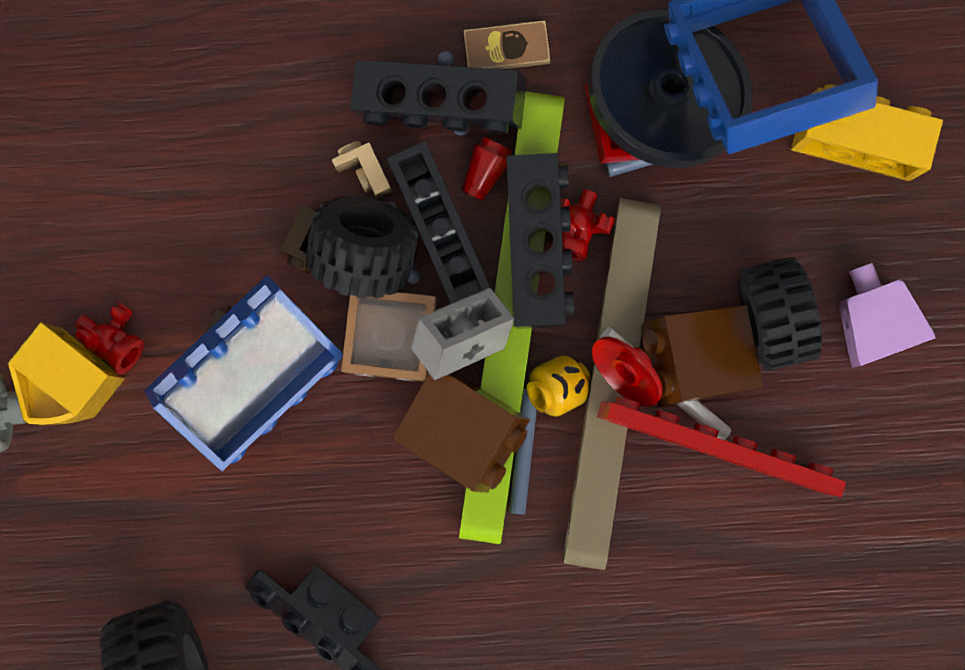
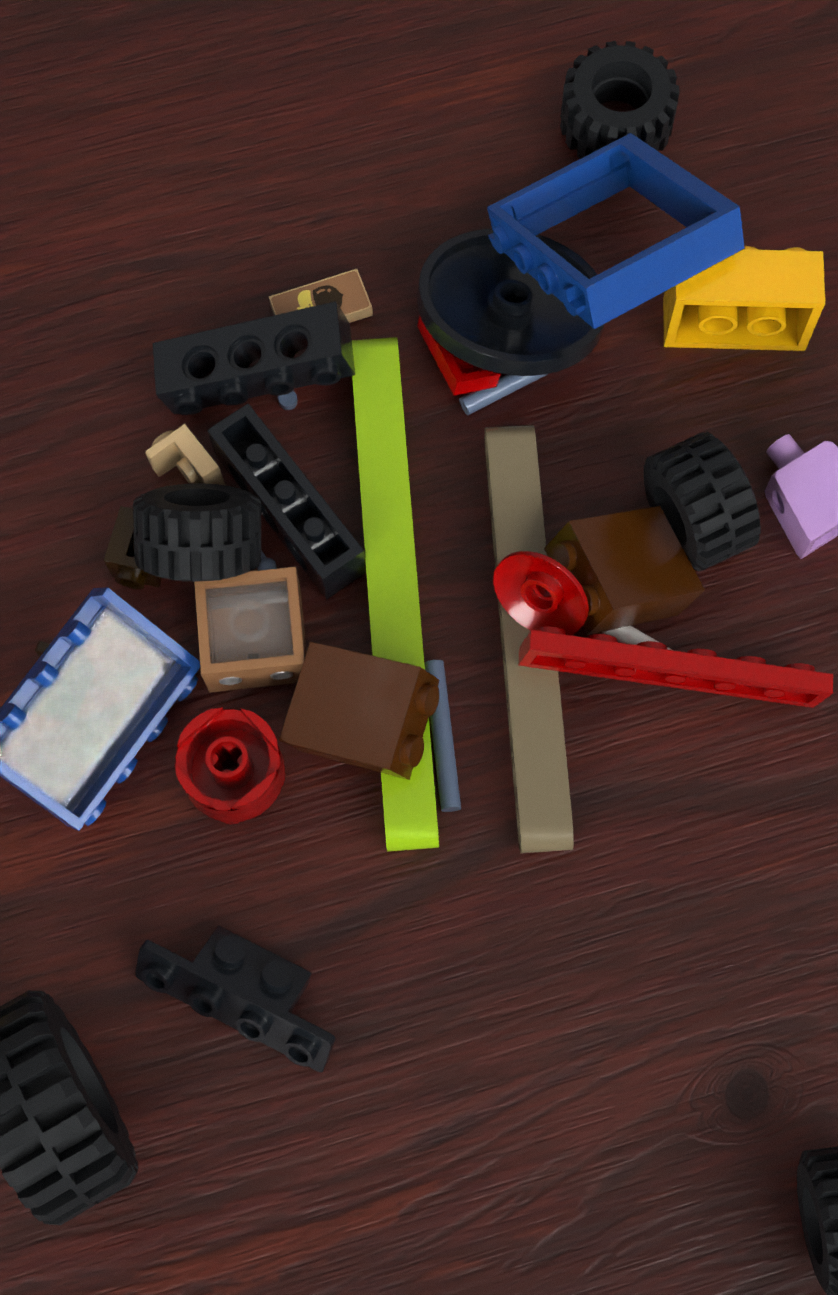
camera: 10 degrees left, 15 degrees down
(327, 436) = (234, 736): none -> red brick
(462, 333) = (335, 593): light grey brick -> none
(485, 167) = (325, 429): red cone -> none
(524, 176) = (374, 412): black brick -> none
(558, 385) = (465, 646): yellow head -> none
(583, 225) = (443, 469): red piece -> none

